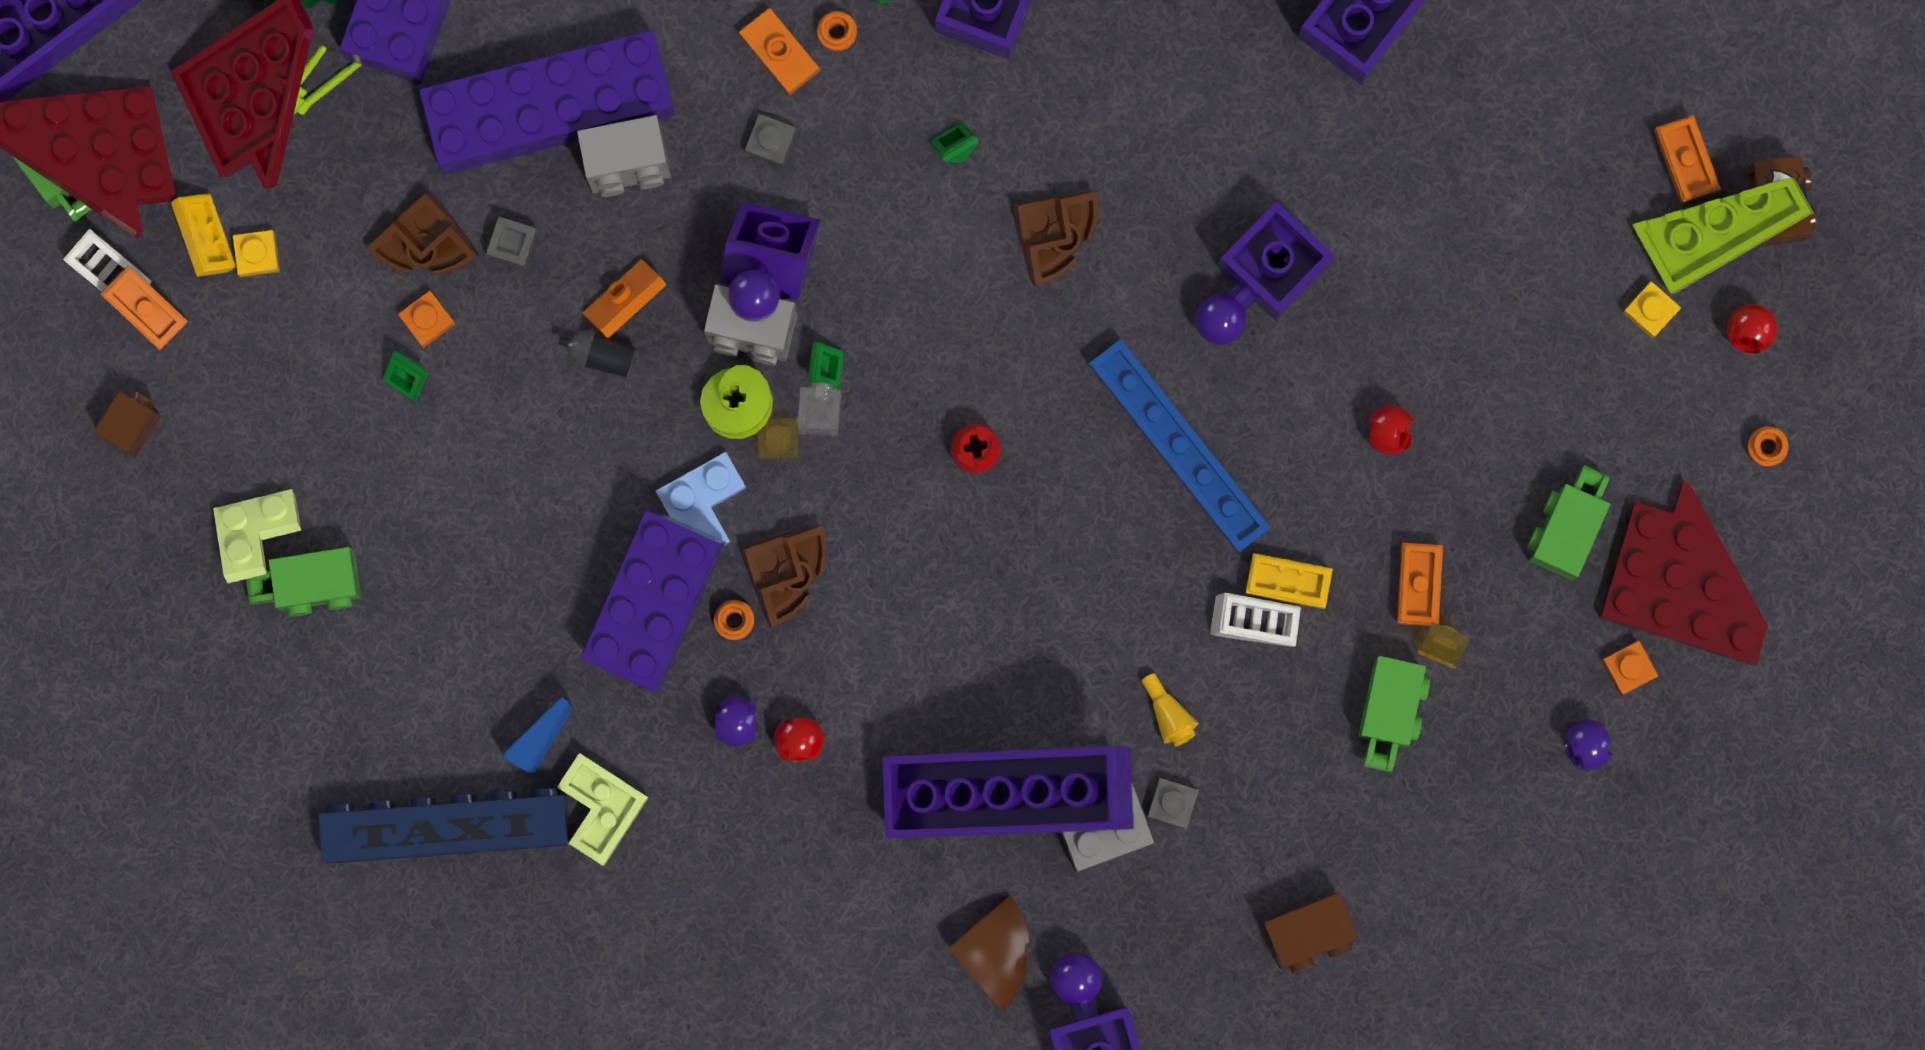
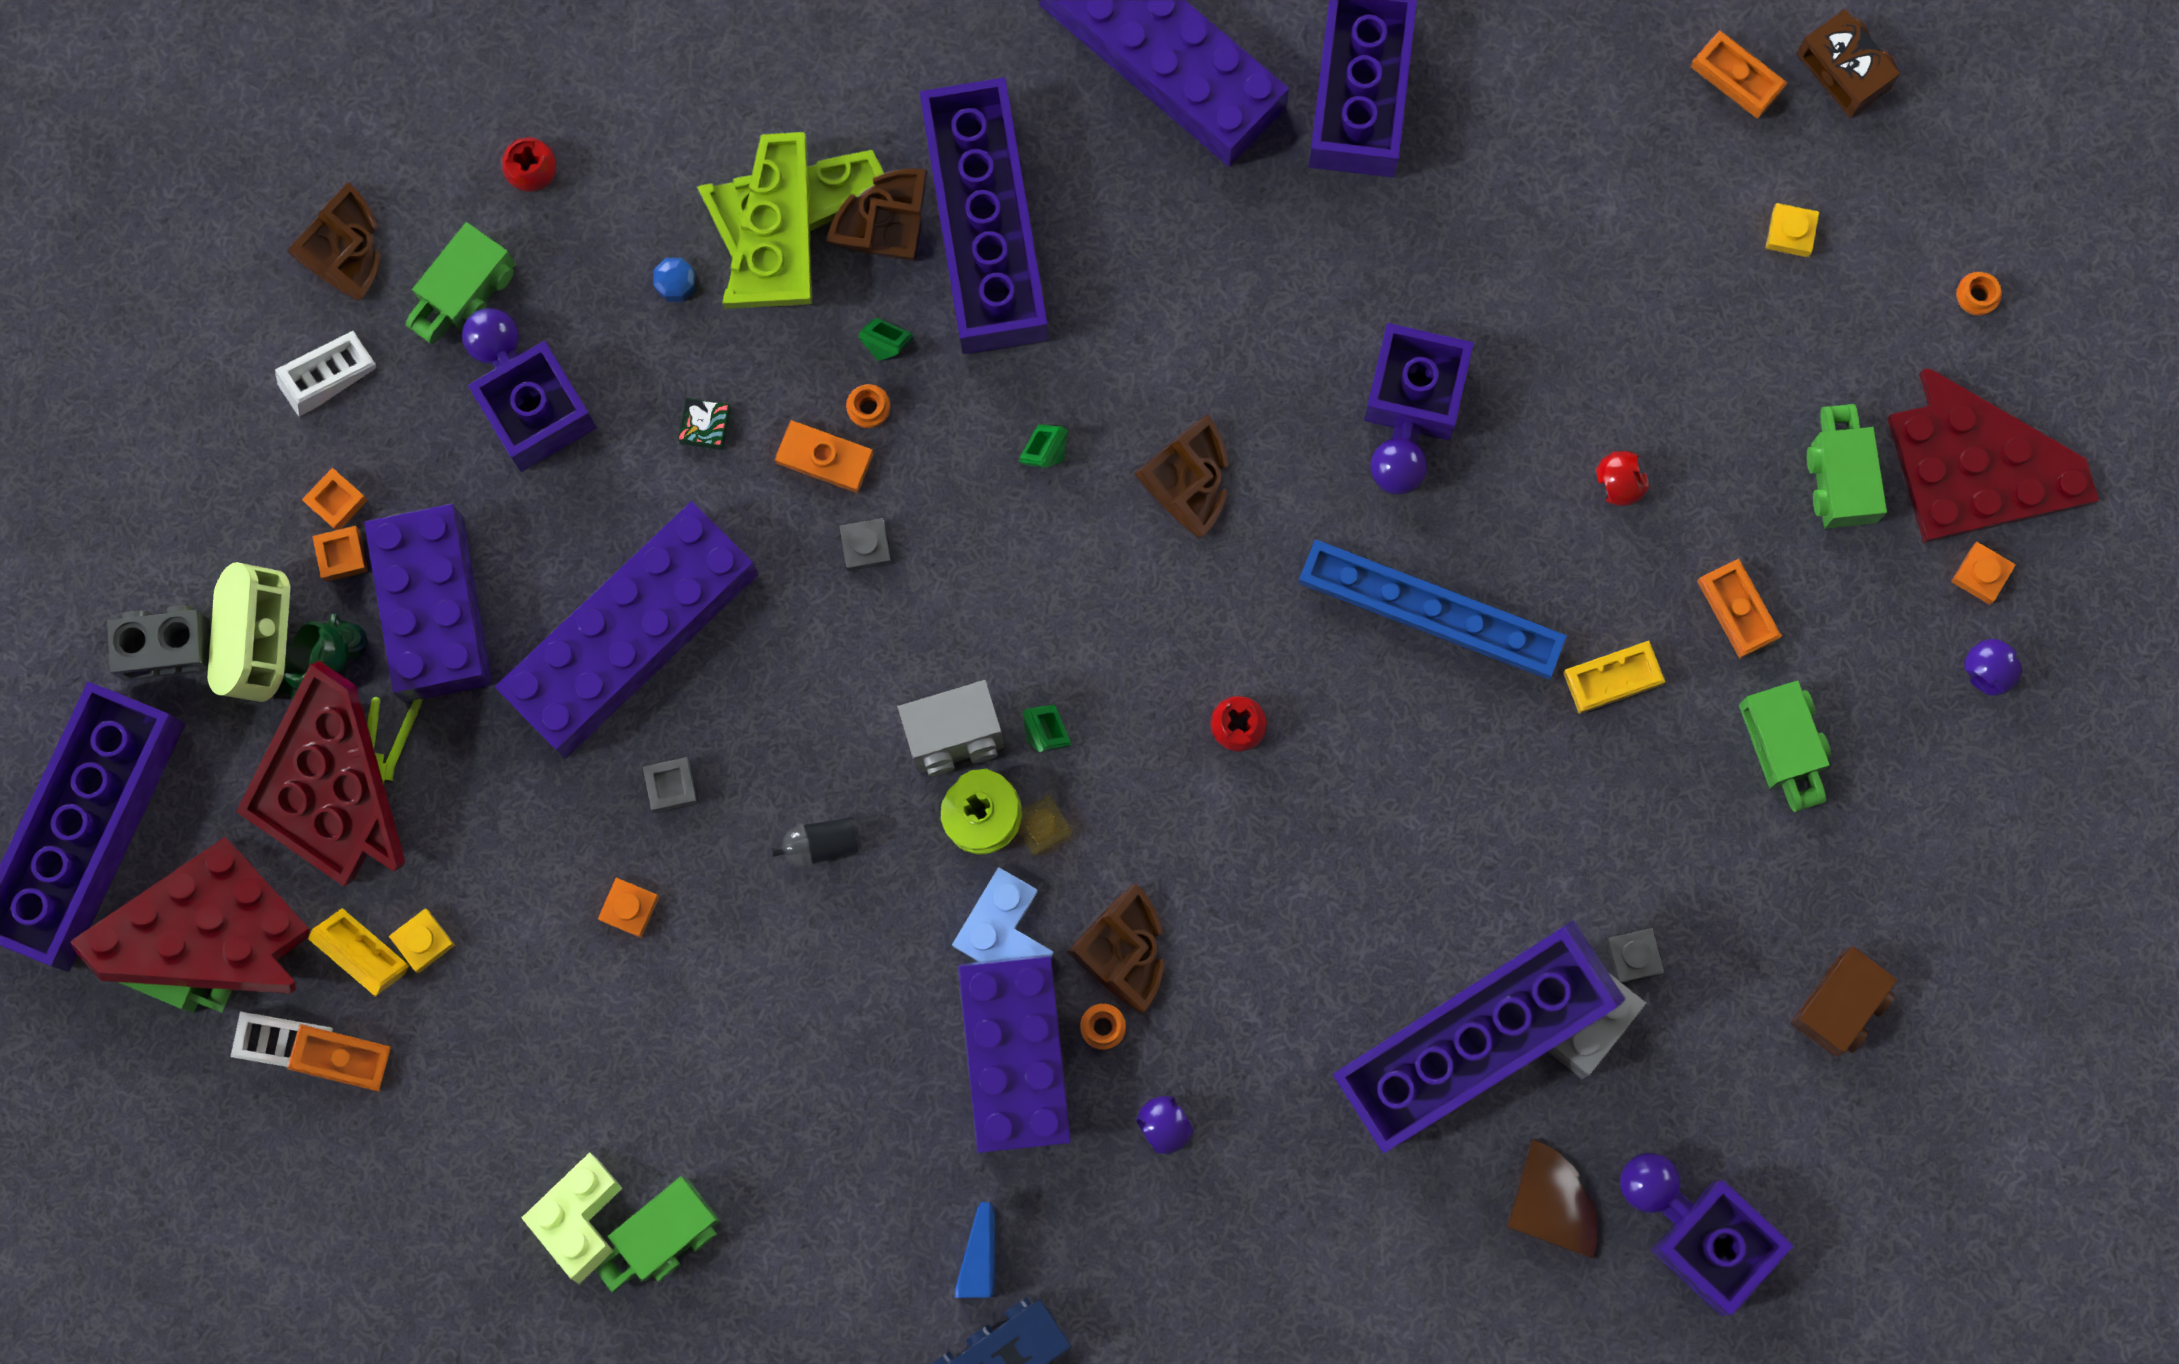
camera: 25 degrees left, 5 degrees down
(128, 422) = (386, 1181): reddish brown brick -> none
(405, 375) = (639, 975): green slope -> none
(424, 239) = (581, 831): reddish brown brick -> none
(611, 805) = (1091, 1280): yellowish green plate -> none
(624, 156) = (733, 636): light grey piece -> none
(624, 298) = (812, 775): orange plate -> none
(766, 259) = (932, 656): dark purple brick -> none
(799, 739) = (1237, 1106): red piece -> none
(819, 410) = (1067, 772): clear brick -> none
(1173, 720) = (1585, 873): yellow cone -> none
(1222, 612) = (1578, 744): white slope -> none
(1443, 645) = (1798, 652): clear yellow plate -> none
(1707, 236) = (1807, 127): lime wing -> none
(1752, 328) = (1898, 192): red piece -> none

